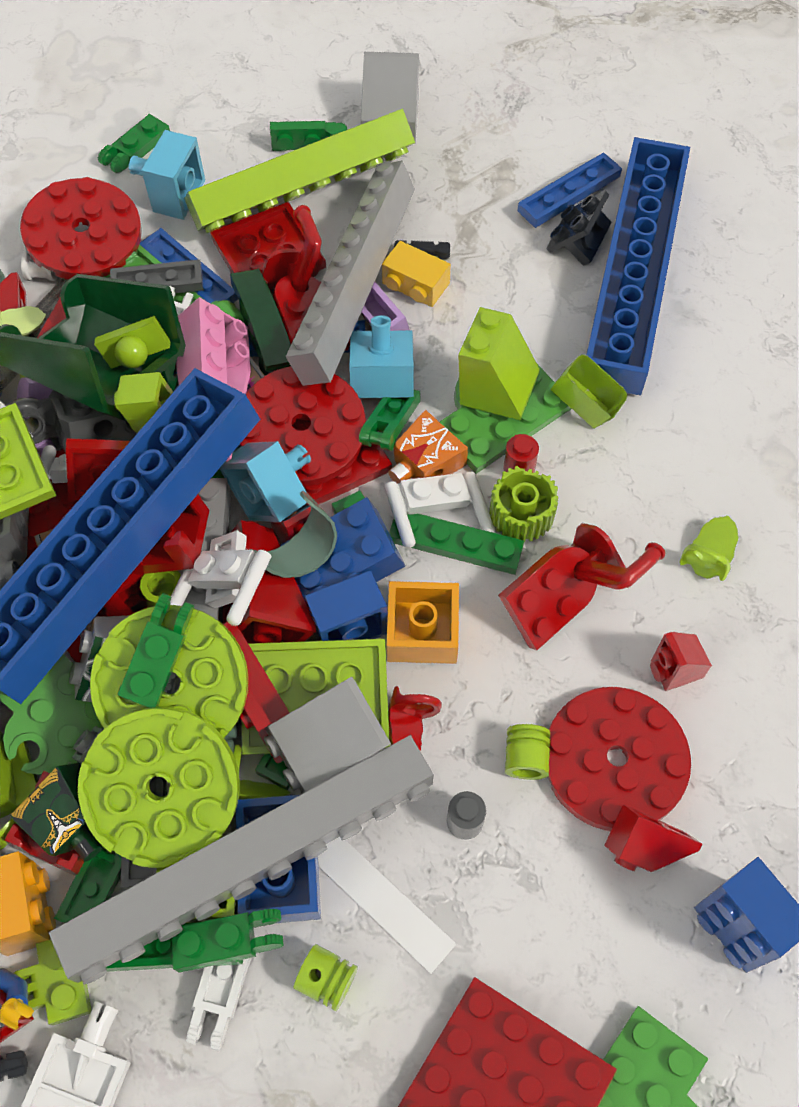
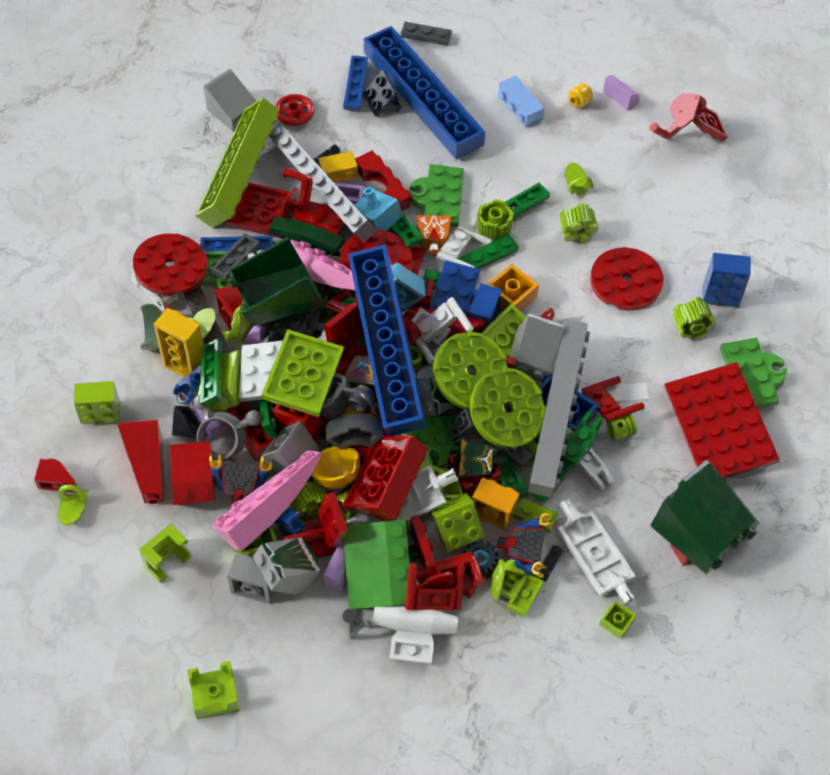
camera: 50 degrees left, 5 degrees down
(132, 343) = (287, 275): lime tile -> none
(136, 142) = (128, 212): green hinge -> none
(141, 397) = (334, 291): lime brick -> none
(155, 655) = (461, 360): green hinge -> none
(170, 173) = (177, 209): medium azure brick -> none
(297, 134) = (210, 146): green hinge -> none
(308, 547) = (444, 287): sand green piece -> none
(344, 913) = (608, 407): none -> red plate
(437, 363) = (373, 169): none -> red arch
(456, 167) = (295, 109): none -> red plate
(466, 815) = (603, 338): dark grey brick -> none
(496, 366) = (427, 175): lime slope -> none
(521, 452) = (471, 204): red brick -> none
(527, 752) = (598, 301): lime piece -> none
(566, 581) = (542, 234): red plate -> none
(602, 388) = (468, 157): lime piece -> none
(610, 515) = (528, 199): none -> green plate
(632, 614) = (578, 223): none -> lime brick
(632, 922) = (693, 318): none -> lime brick
(647, 841) = (668, 292): red slope -> none
(679, 660) = (611, 227): slope -> none
(740, 197) = (426, 33): none -> dark grey plate
(760, 376) = (520, 101): none -> light blue brick

